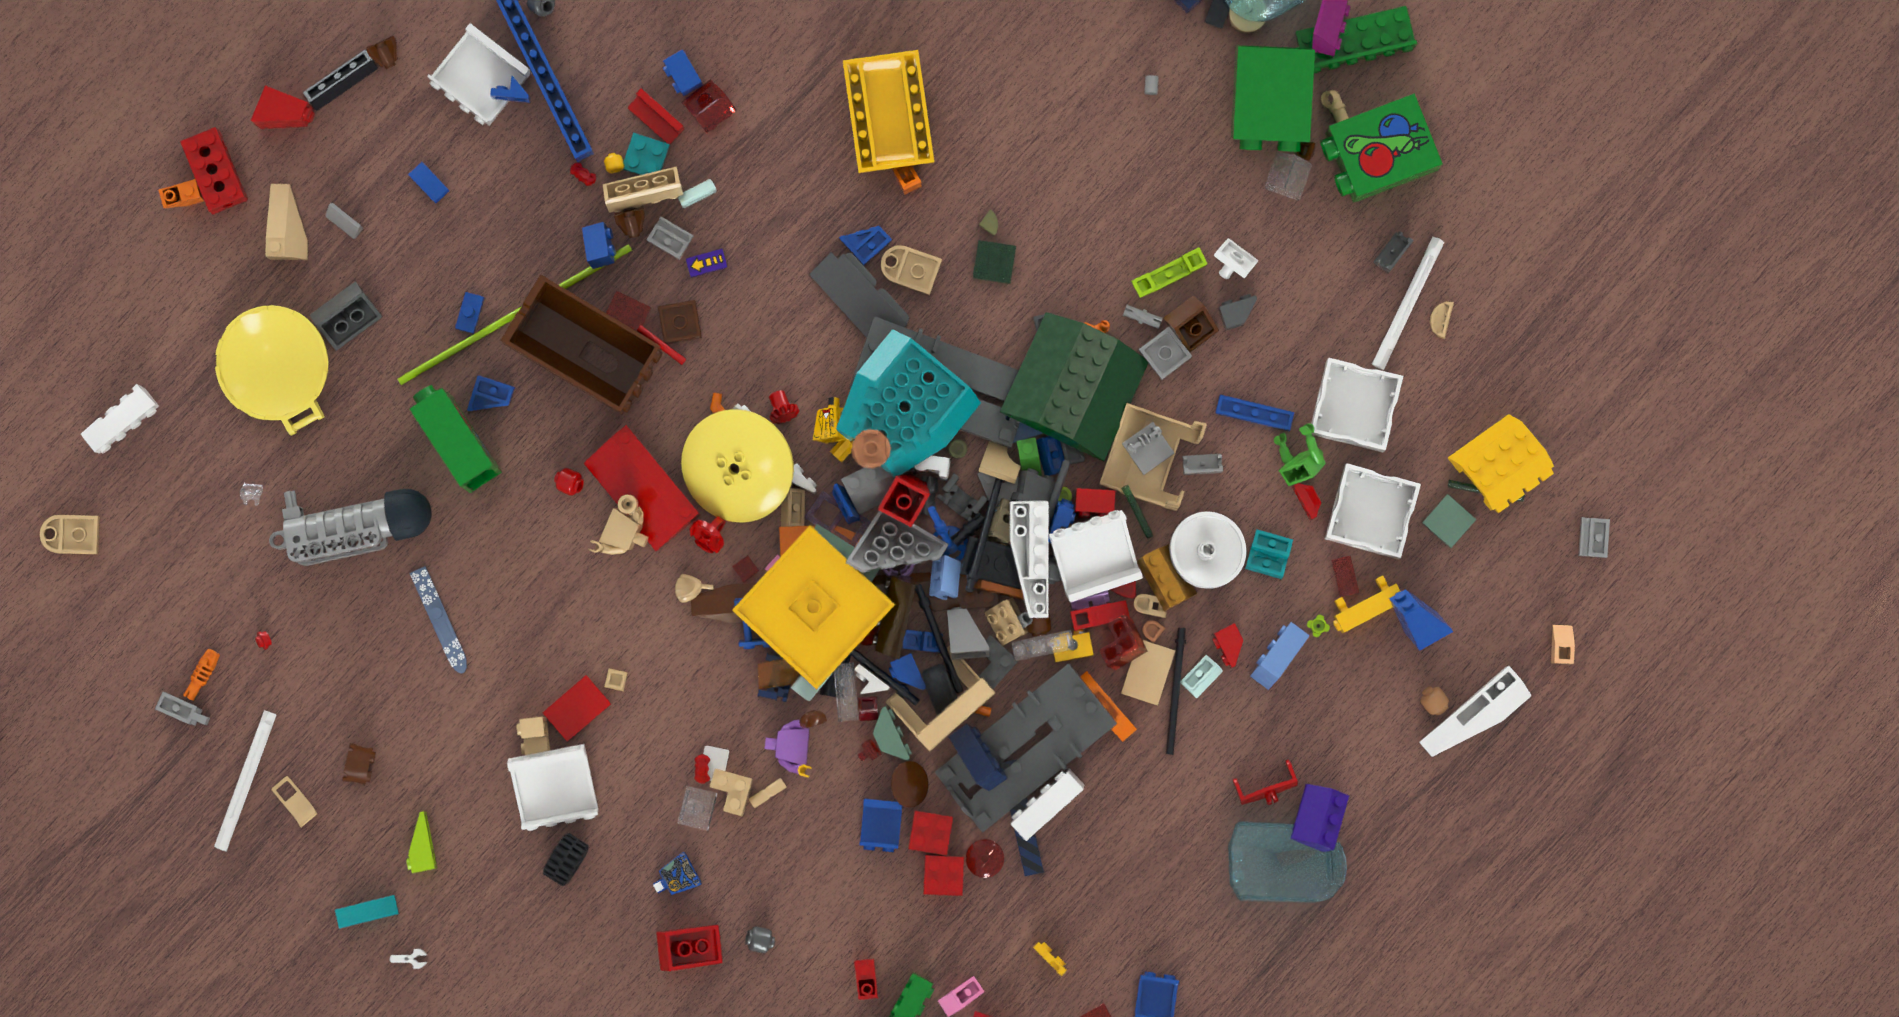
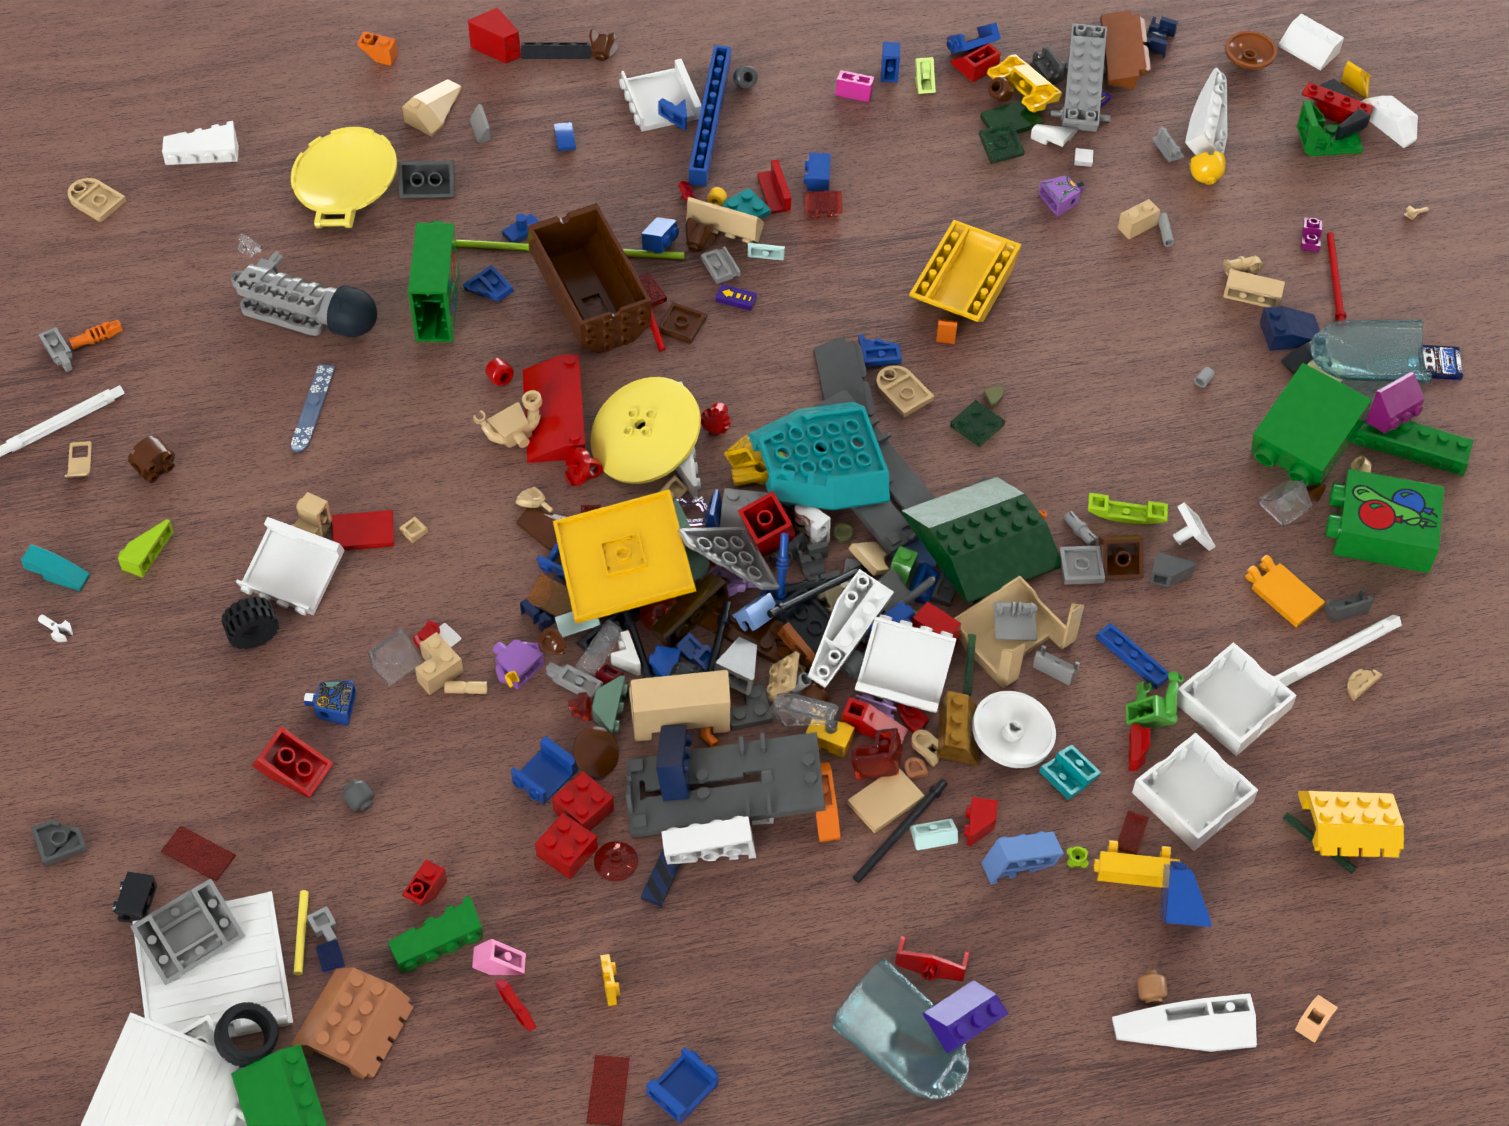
camera: 30 degrees right, 30 degrees down
(226, 174) = (410, 65): red brick -> none
(263, 640) = (164, 339): red plate -> none
(846, 731) = (573, 679): none -> light grey hinge
(870, 449) = (766, 453): nougat tile -> none
(1337, 270) = (1284, 591): none -> light orange tile
(1449, 521) = (1266, 846): sand green tile -> none
(1594, 537) = (1407, 943): light grey plate -> none

